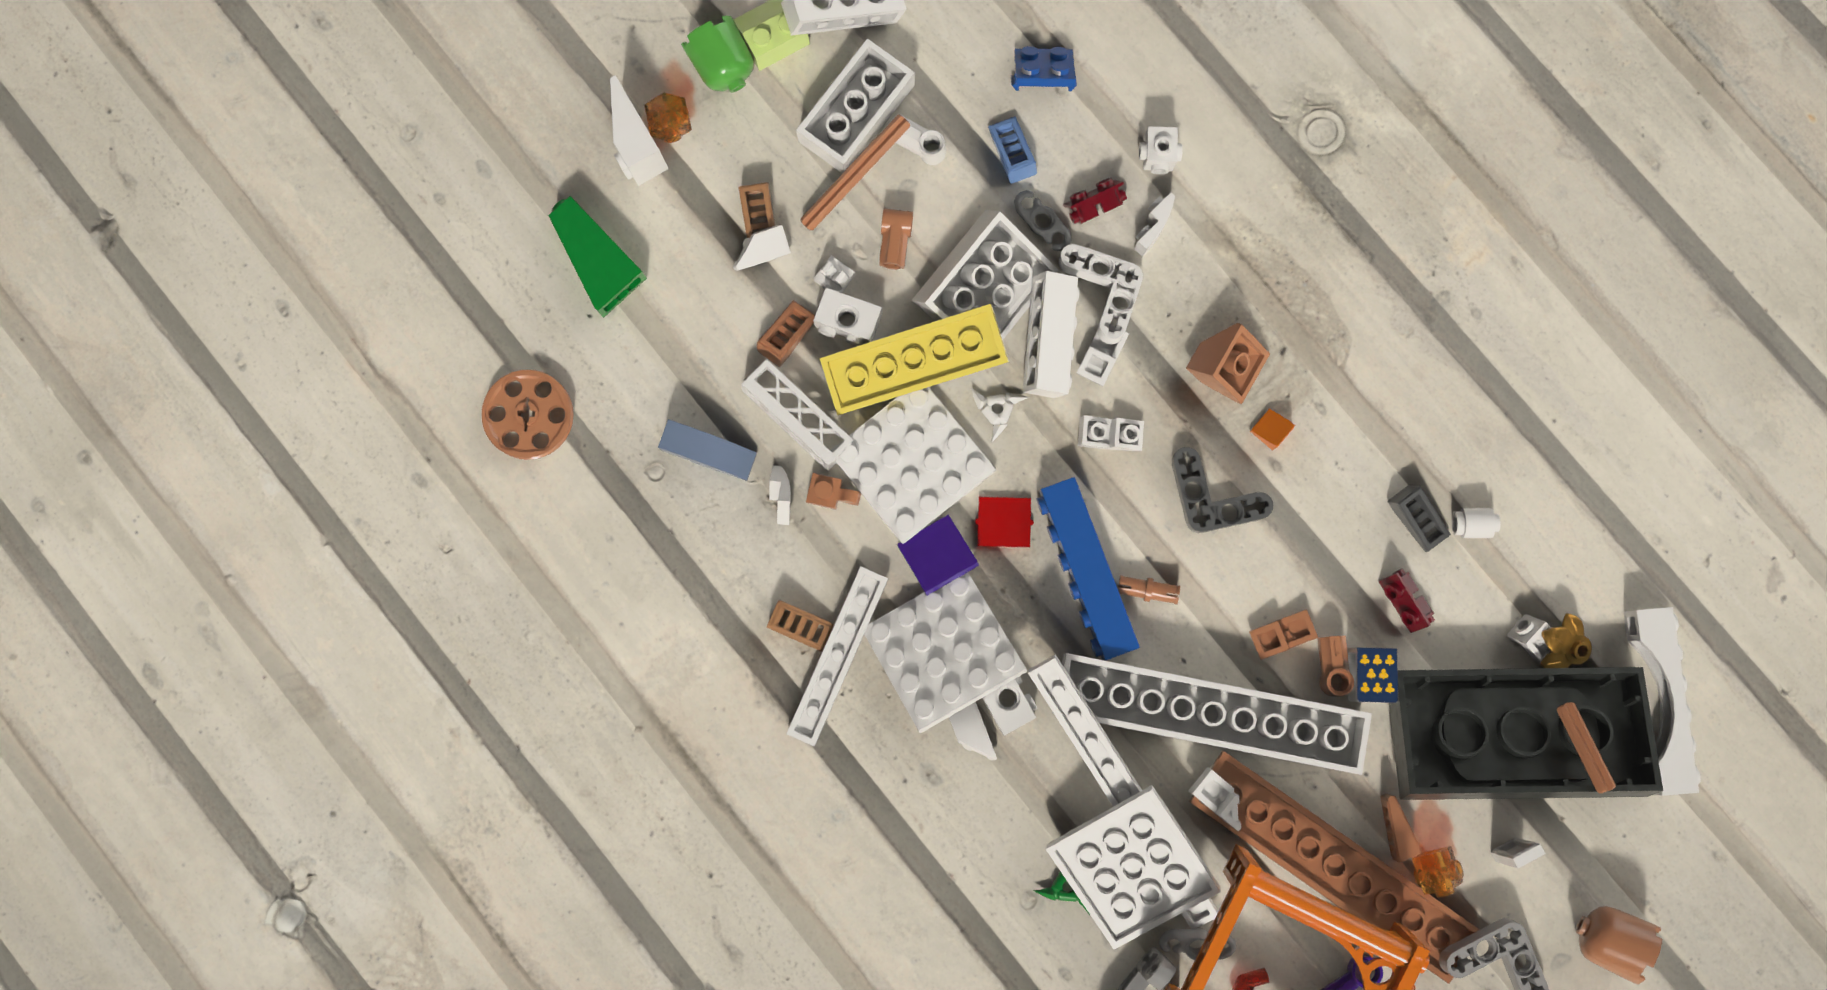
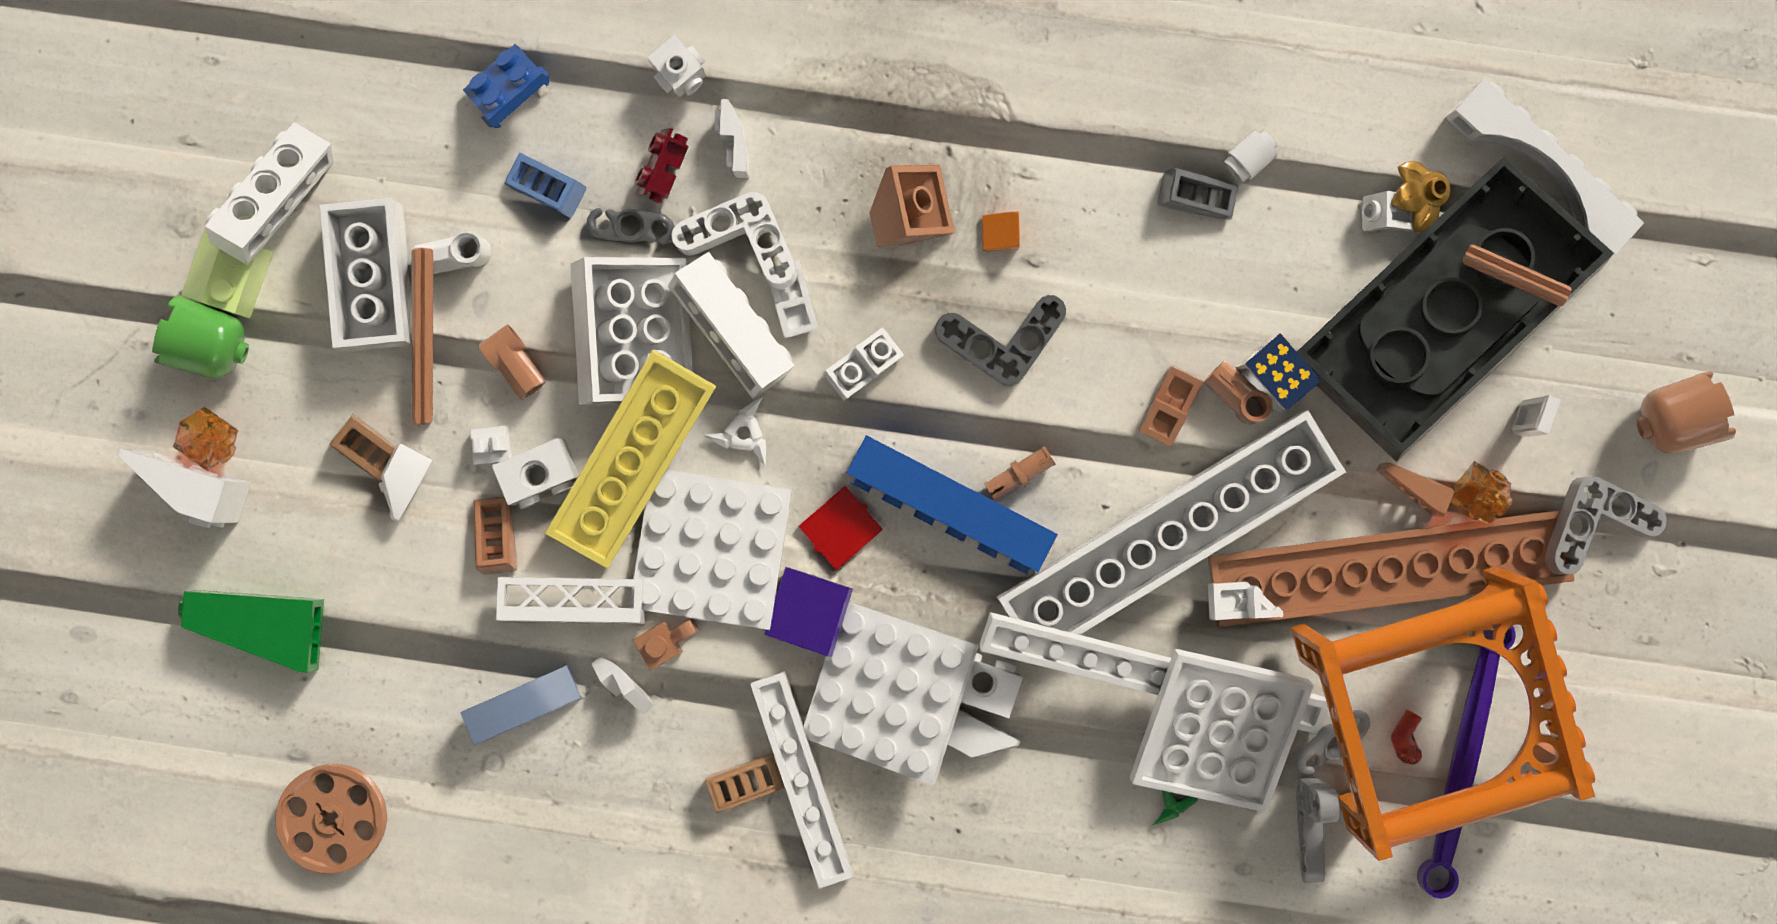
camera: 40 degrees left, 5 degrees up
(1413, 612) = (1266, 284): dark red hinge -> none

